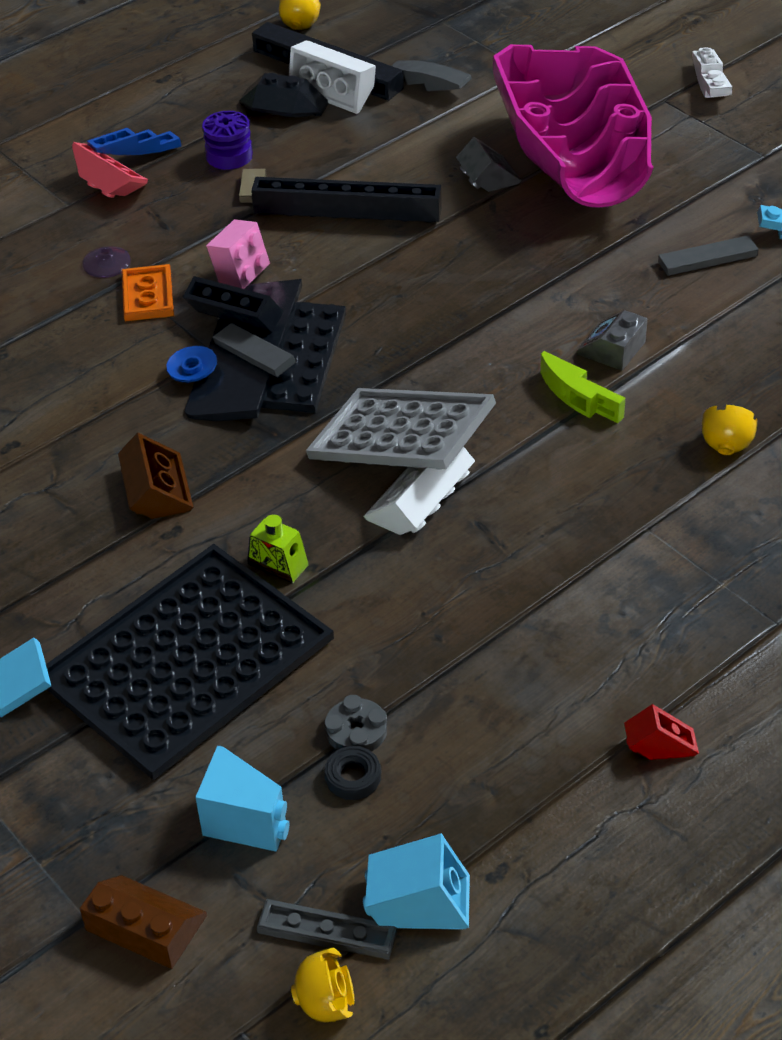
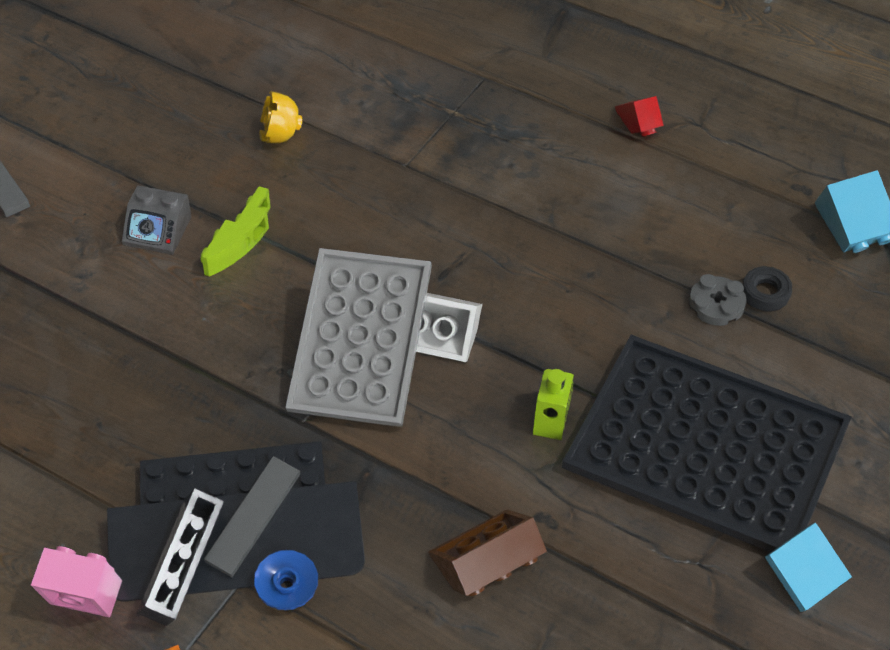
camera: 110 degrees left, 5 degrees up
(241, 804) = (857, 336): medium azure slope -> none

